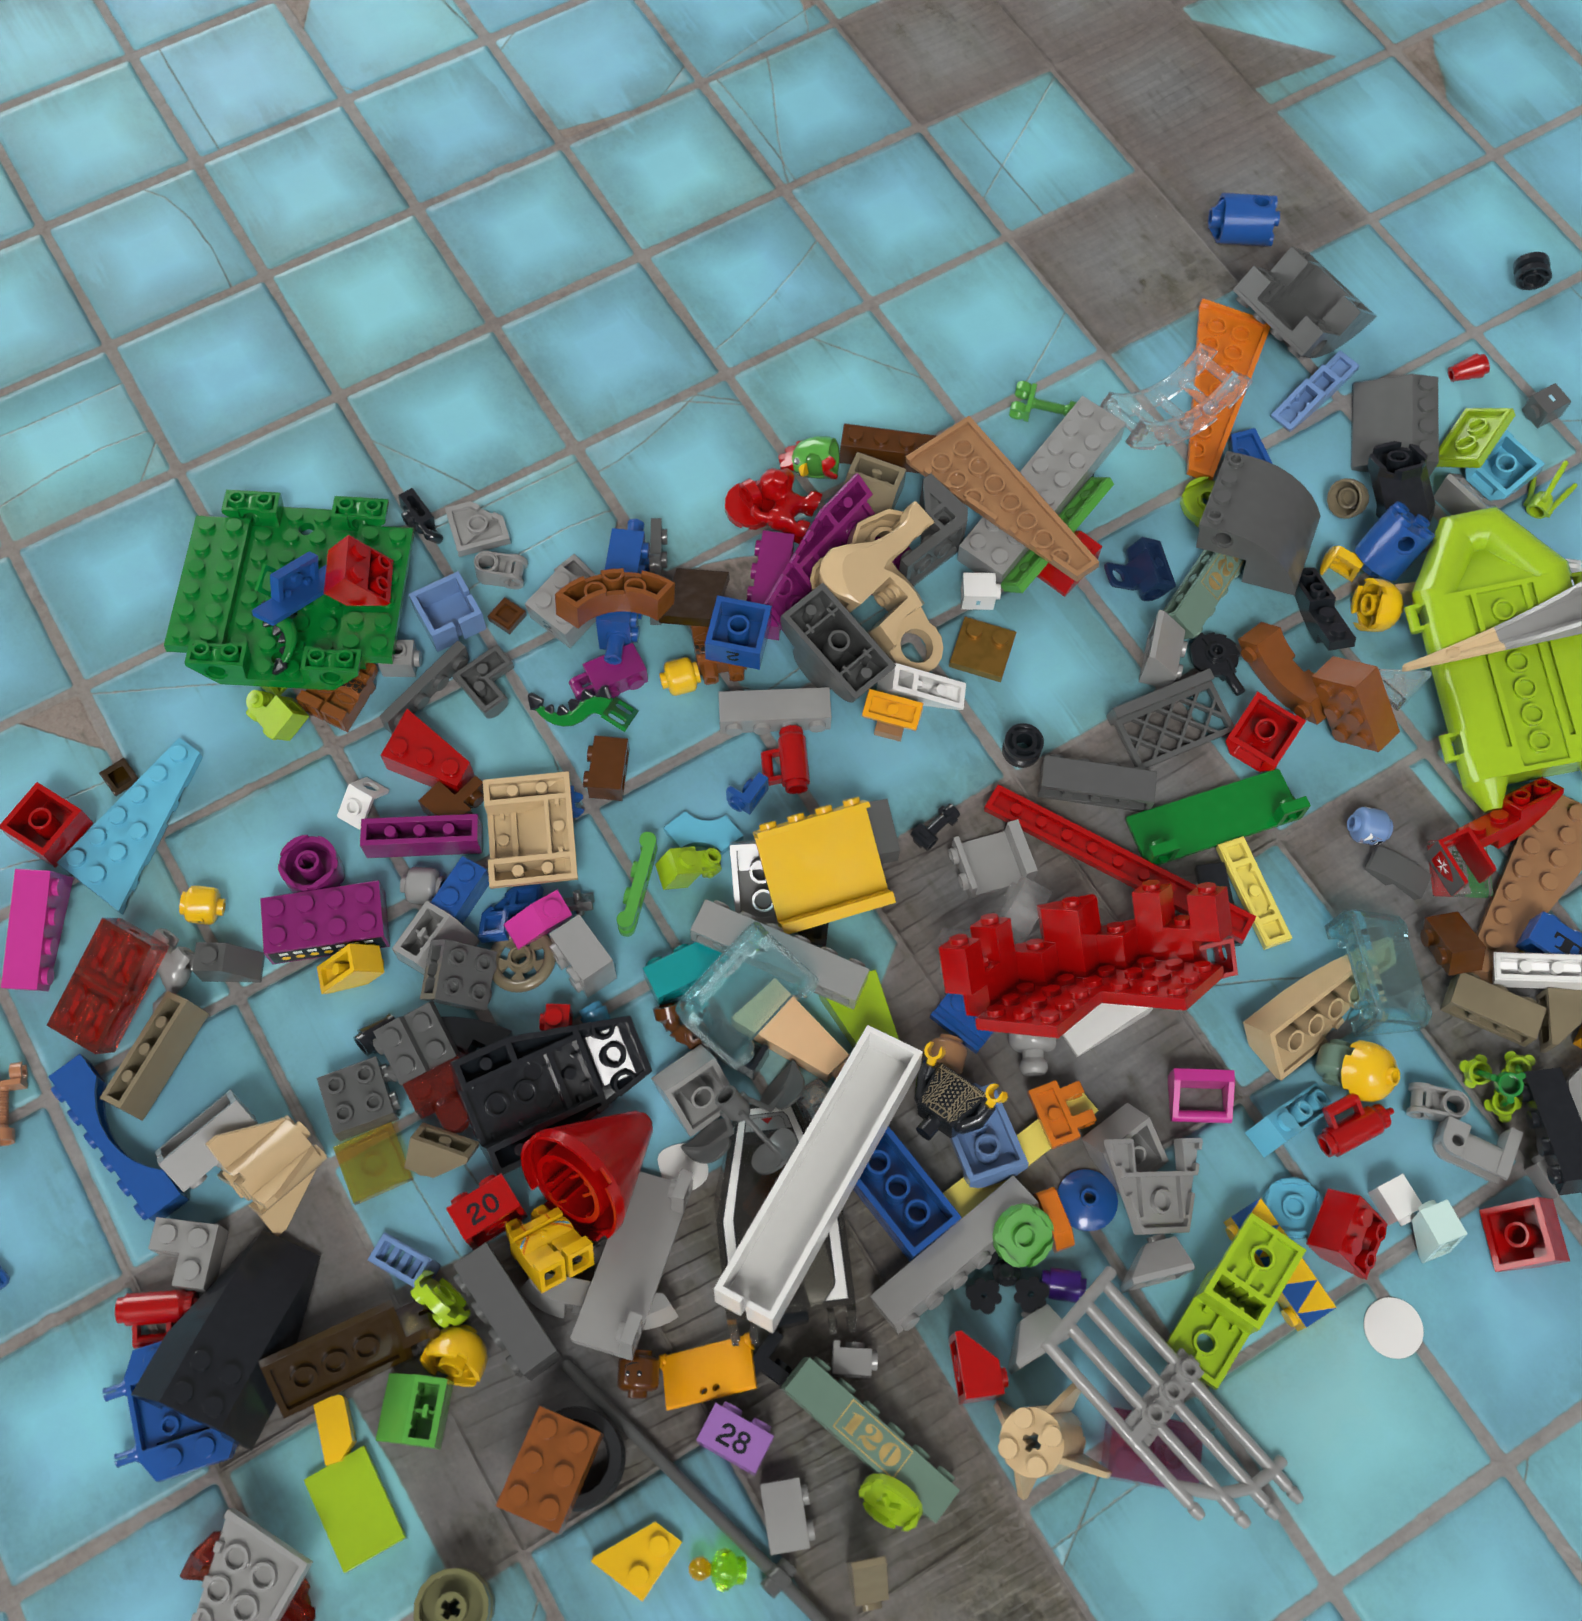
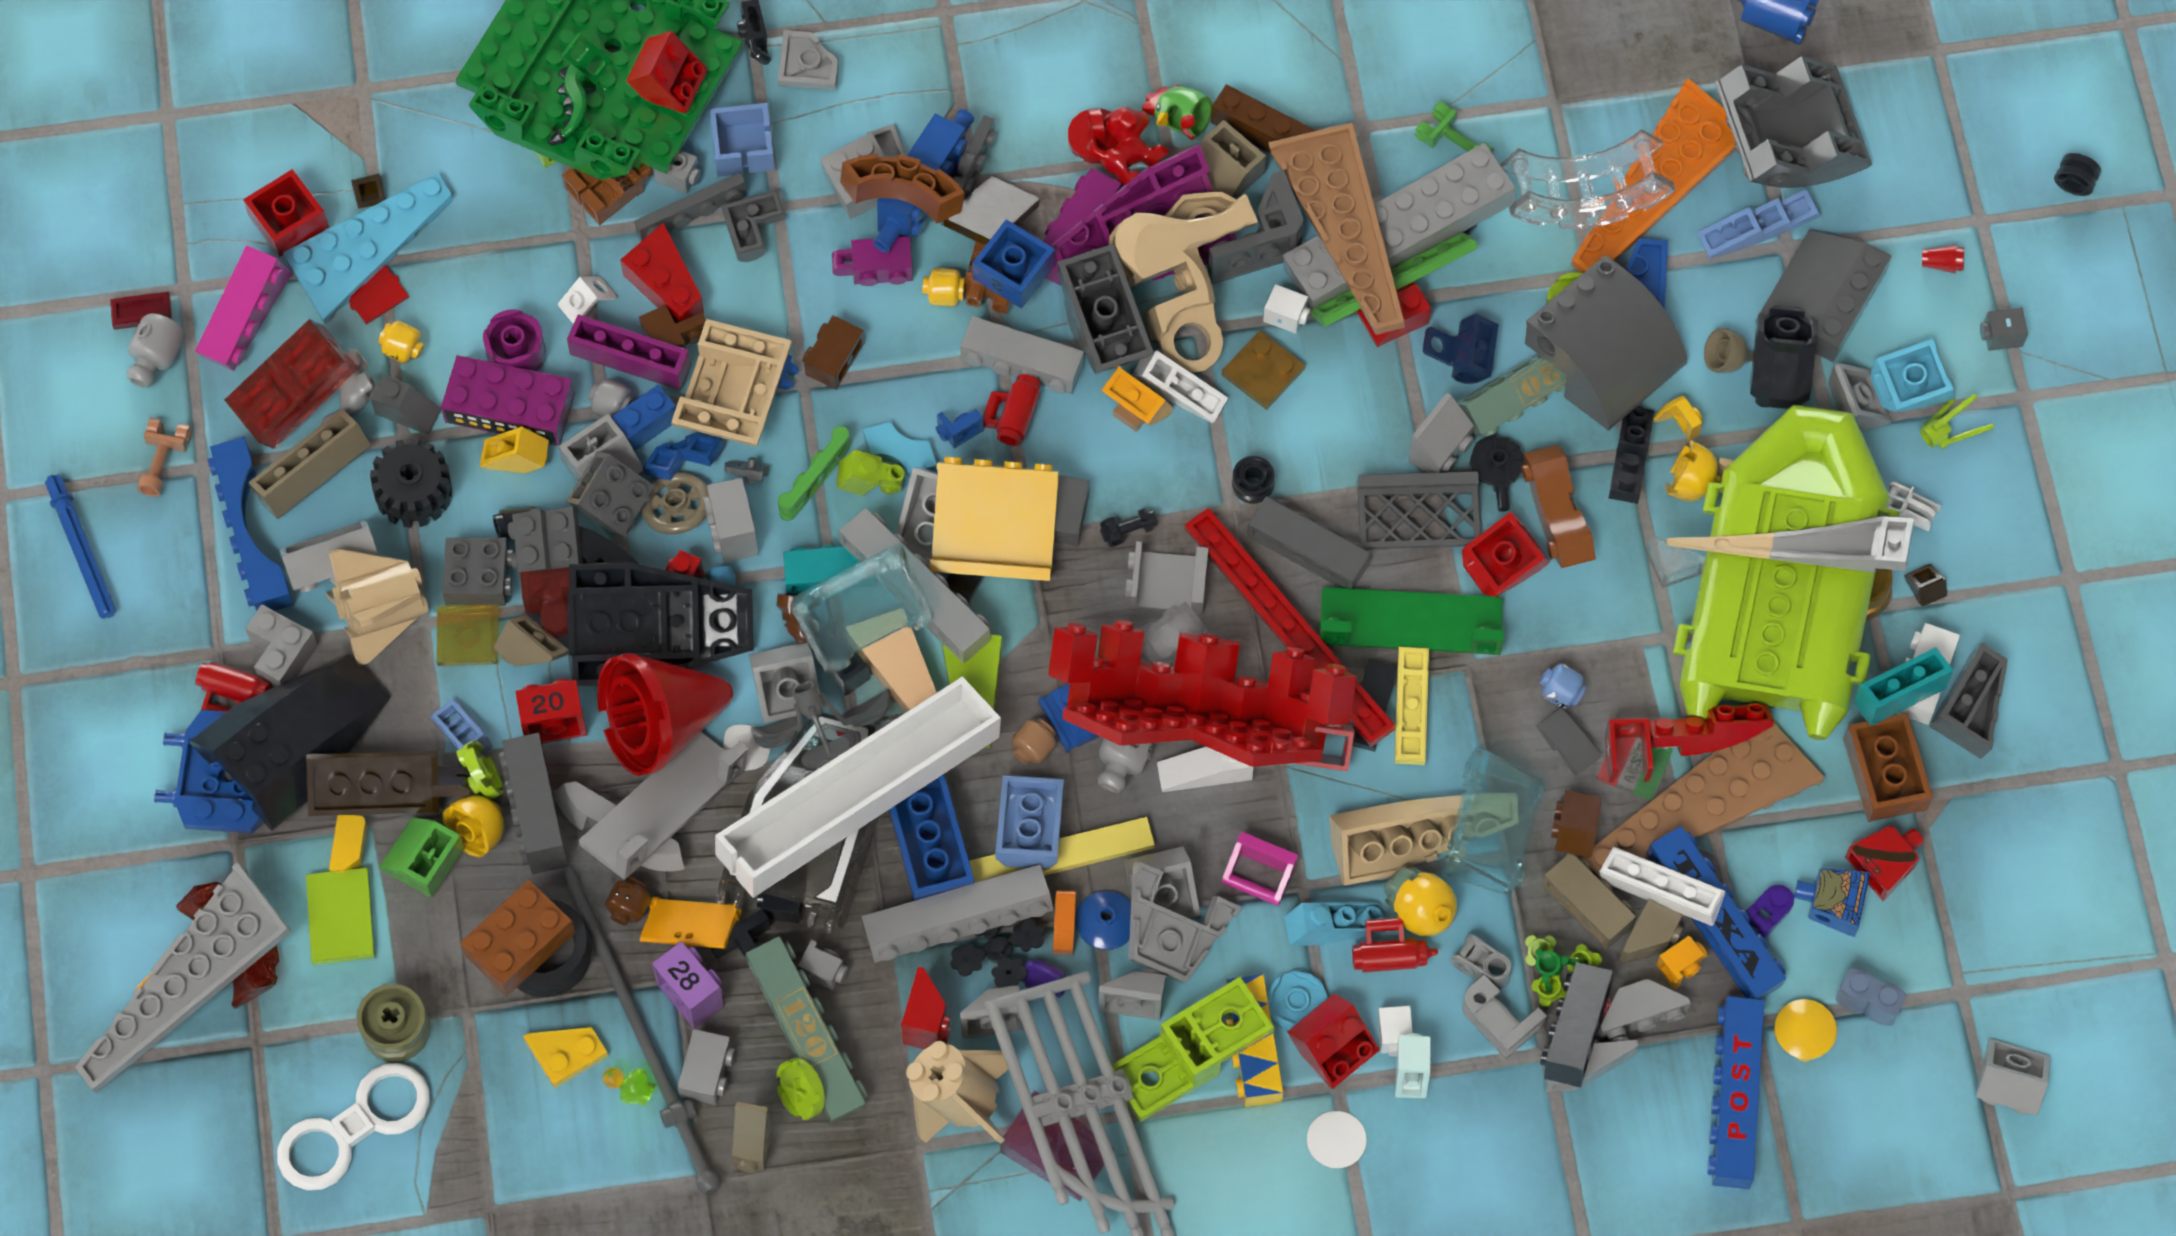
camera: 25 degrees right, 0 degrees up
(163, 869) = (378, 296): none -> red piece
(273, 1049) = (411, 478): none -> black wheel
(276, 714) = (538, 184): lime brick -> none
(292, 589) = (598, 66): blue bracket -> none
(502, 569) = (817, 117): light grey piece -> none
(507, 615) = (801, 164): reddish brown tile -> none
(538, 919) = (703, 469): dark pink slope -> none
(548, 1245) = (593, 760): yellow hips -> none
(589, 705) = (841, 283): green piece -> none
(949, 1100) = (1010, 774): black torso -> none
(1023, 1235) = (1022, 917): bright green tile -> none
(1054, 1114) = (1107, 829): orange plate -> none
(1356, 703) = (1598, 559): dark orange brick -> none
(1394, 542) = (1738, 413): blue cylinder -> none
(1474, 437) = (1897, 334): lime tile -> none
(1524, 1234) = (1502, 1107): red slope -> none

